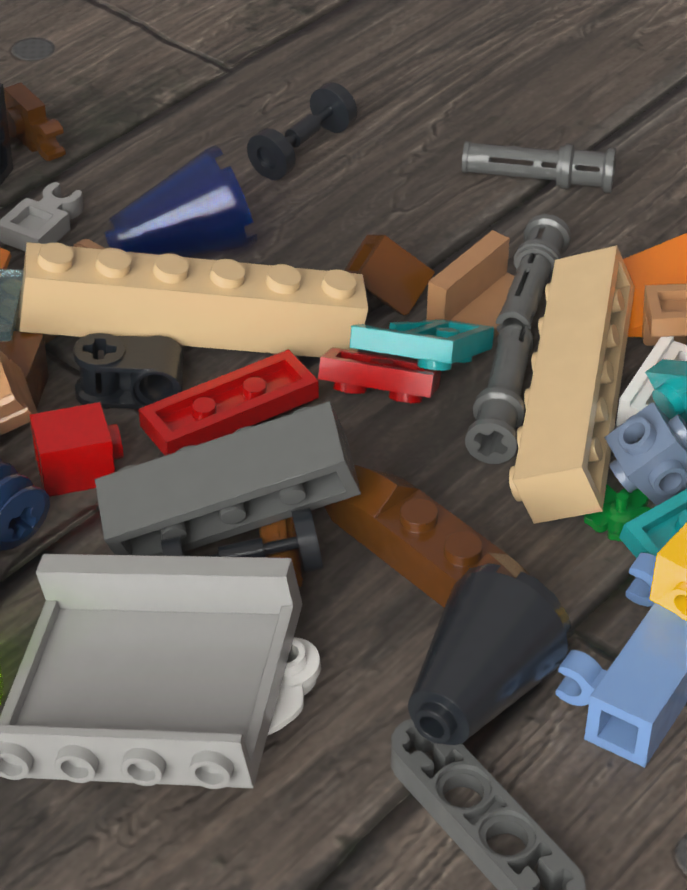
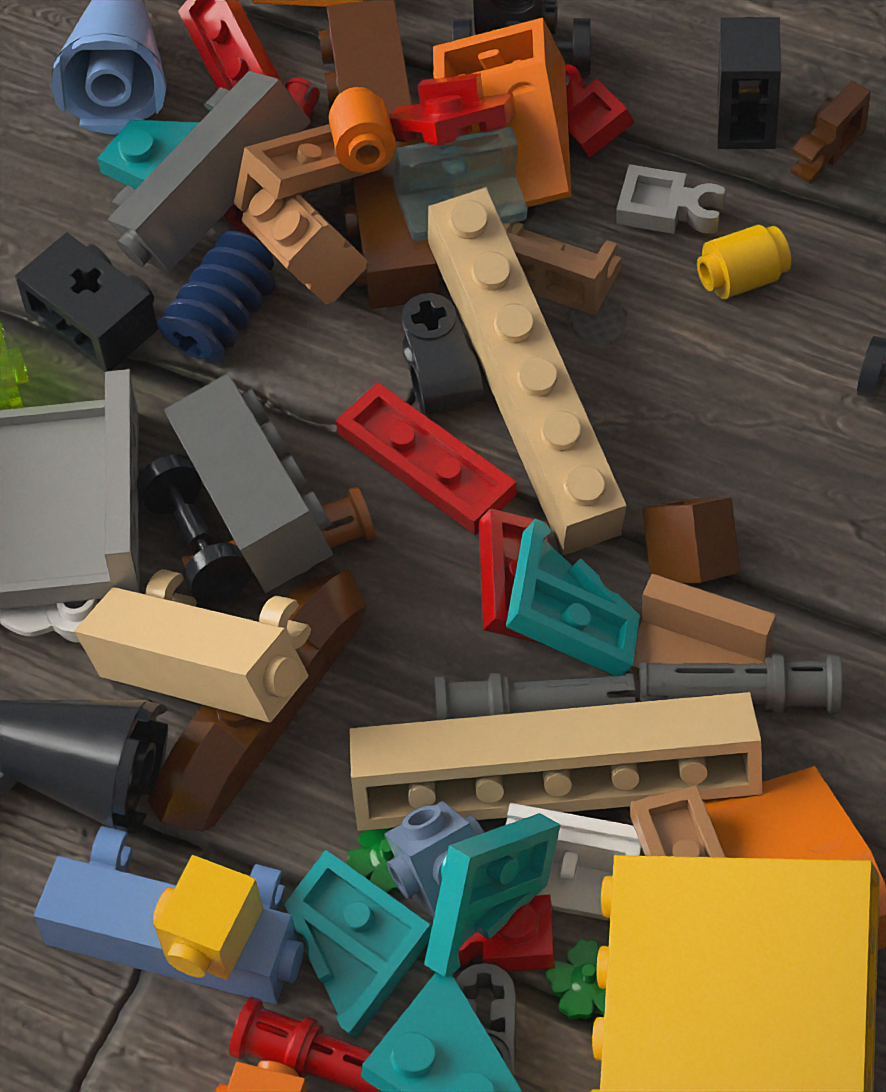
camera: 80 degrees right, 15 degrees up
(74, 447) = (308, 350): red brick -> none
(124, 183) = (744, 260): none -> yellow brick
(186, 213) = (707, 325): clear blue cone -> none
(404, 553) = (195, 652): none -> tan brick

